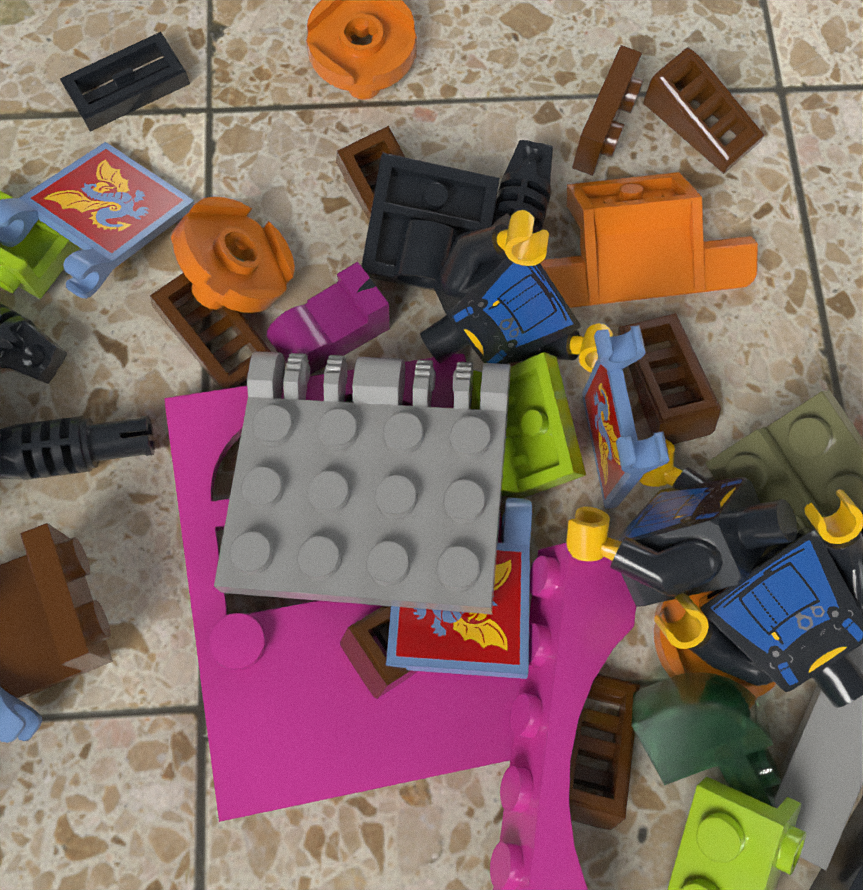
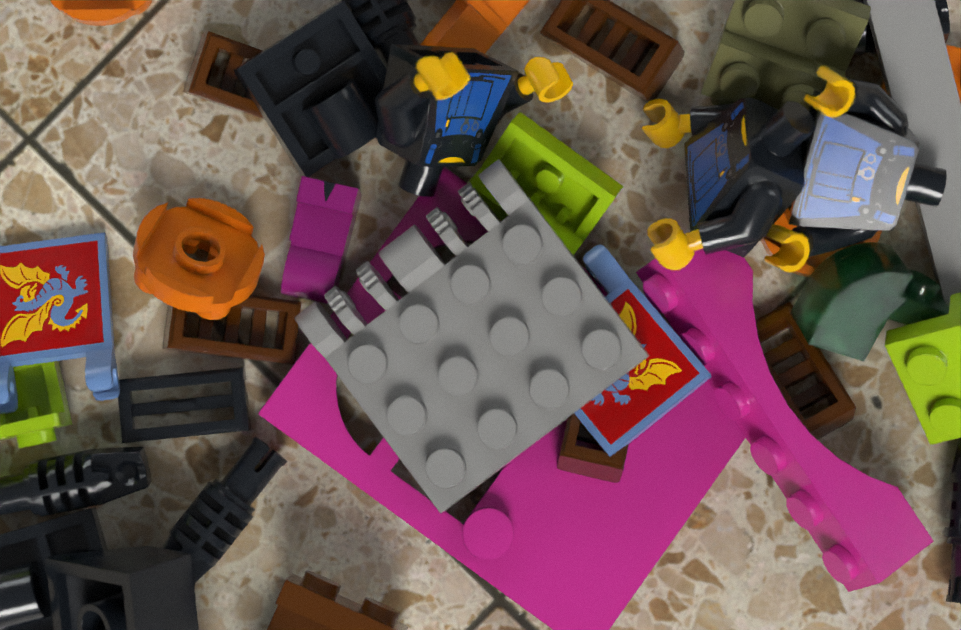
camera: 35 degrees left, 15 degrees up
(163, 383) = (237, 400): none -> black tile
(617, 452) = (578, 108): medium blue flag -> none

